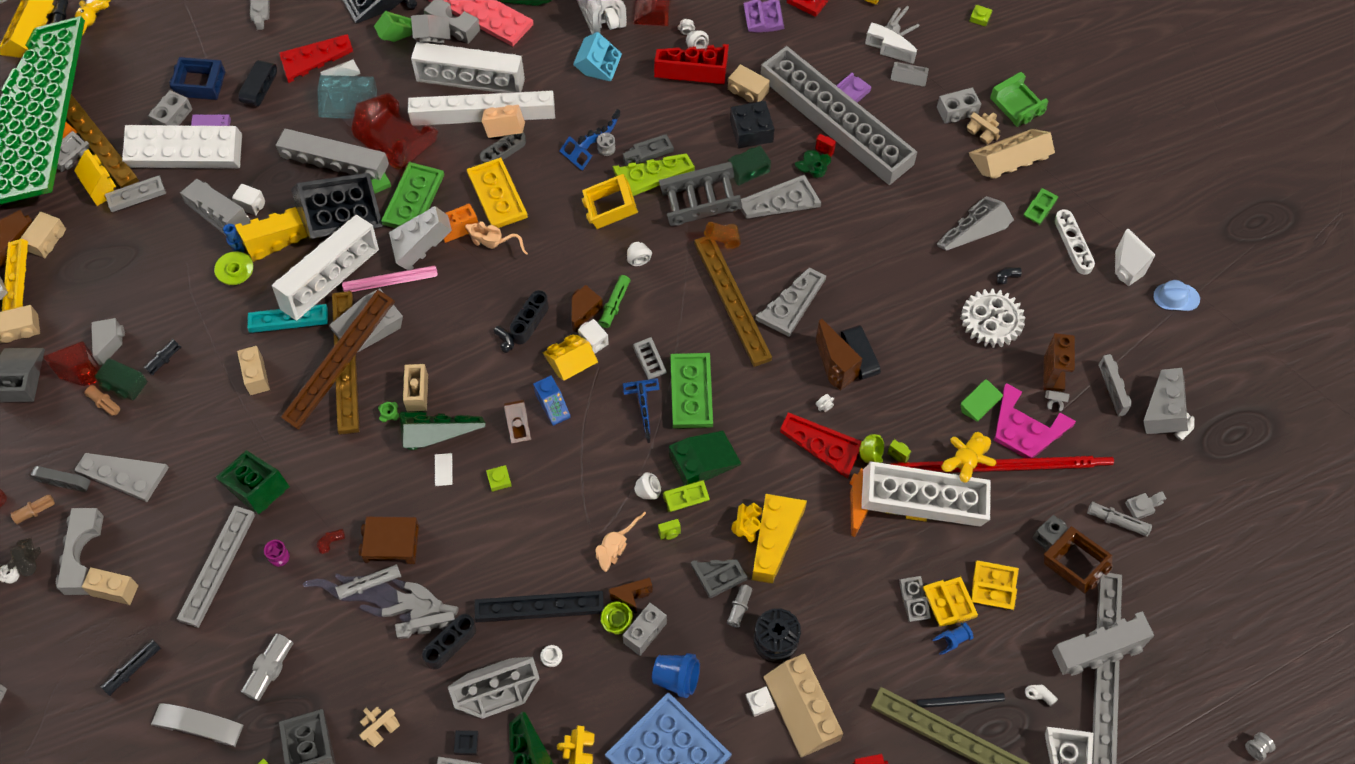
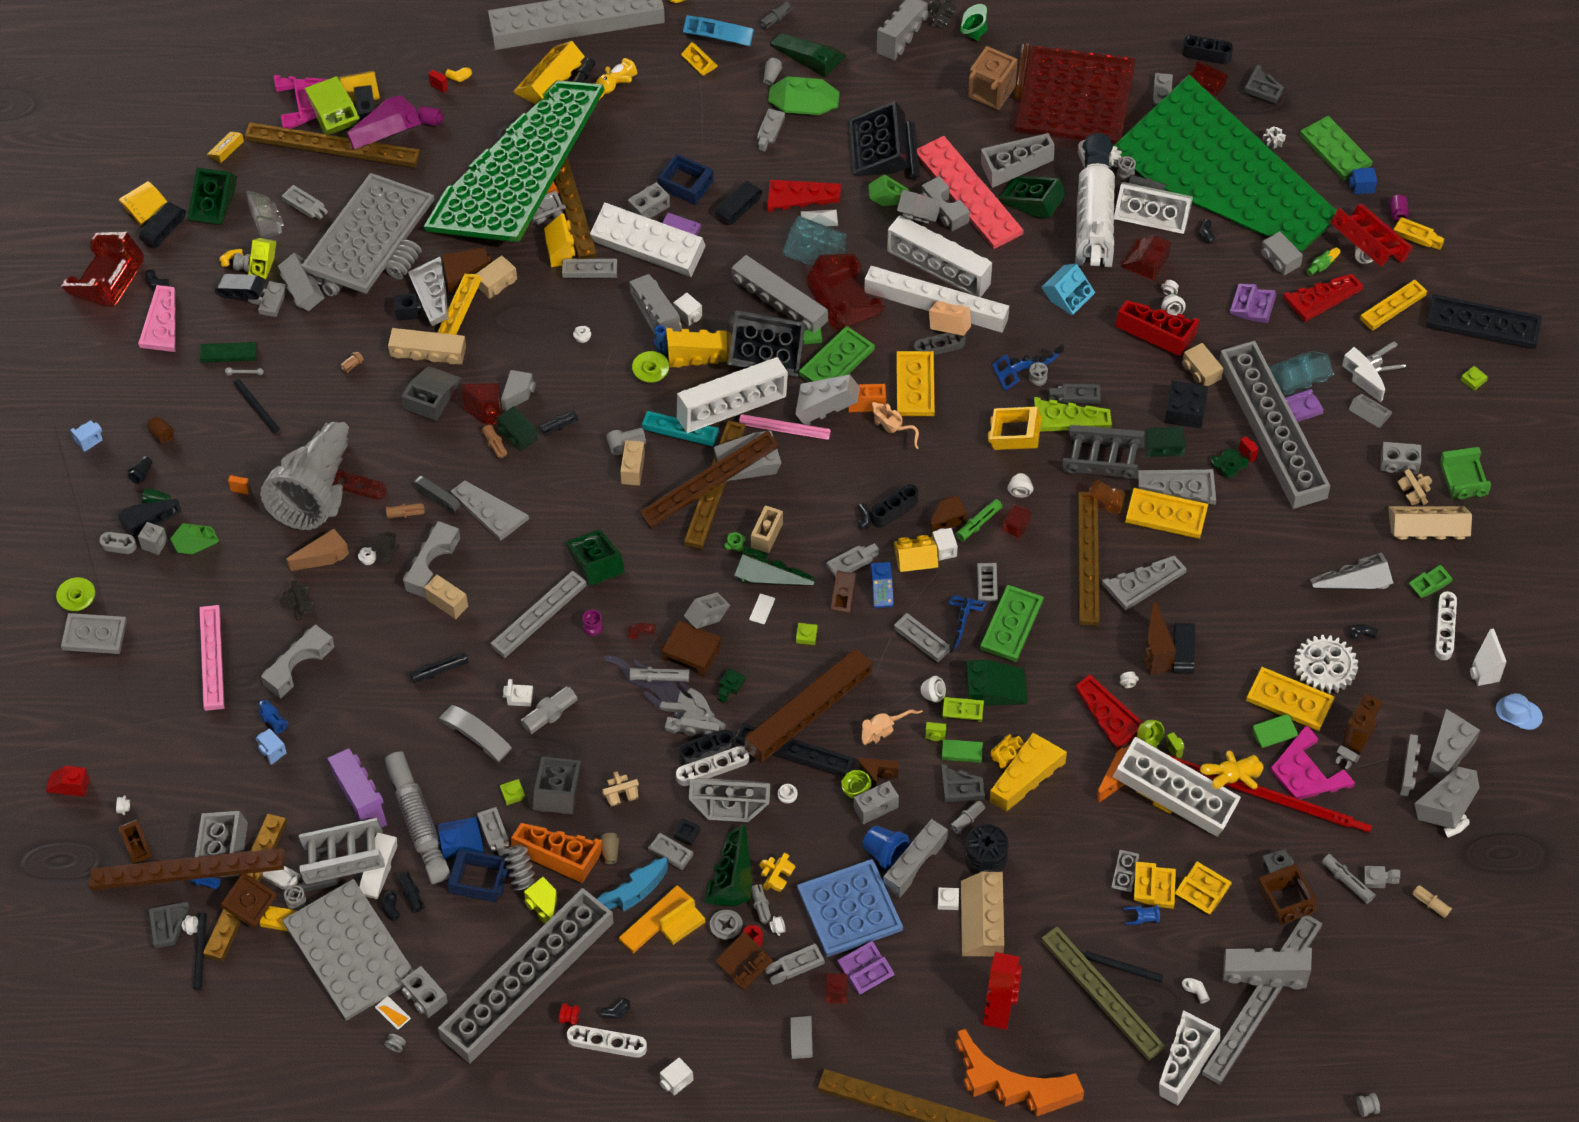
camera: 25 degrees right, 5 degrees down
(154, 263) = (582, 334): none -> white plate
(227, 662) = (518, 694): none -> white bracket
(228, 351) = (617, 438): none -> light grey piece
(390, 495) = (706, 610): none -> light grey brick
(444, 559) = (730, 683): none -> dark green plate
(459, 654) = (711, 763): none -> white beam
(511, 386) = (853, 559): none -> light grey hinge
(532, 556) = (808, 705): none -> reddish brown brick
(613, 438) = (922, 637): none -> light grey plate
(650, 288) = (1017, 521): none -> clear red brick
(702, 538) = (962, 751): none -> bright green tile
(710, 673) = (903, 871): none -> light grey arch
(782, 230) = (1166, 513): none -> yellow plate
(838, 58) = (1302, 371): none -> clear light blue slope
(978, 363) = (1290, 697): none -> yellow plate
(1141, 351) = (1452, 744): none -> light grey wedge
(1204, 510) = (1432, 901): none -> tan axle

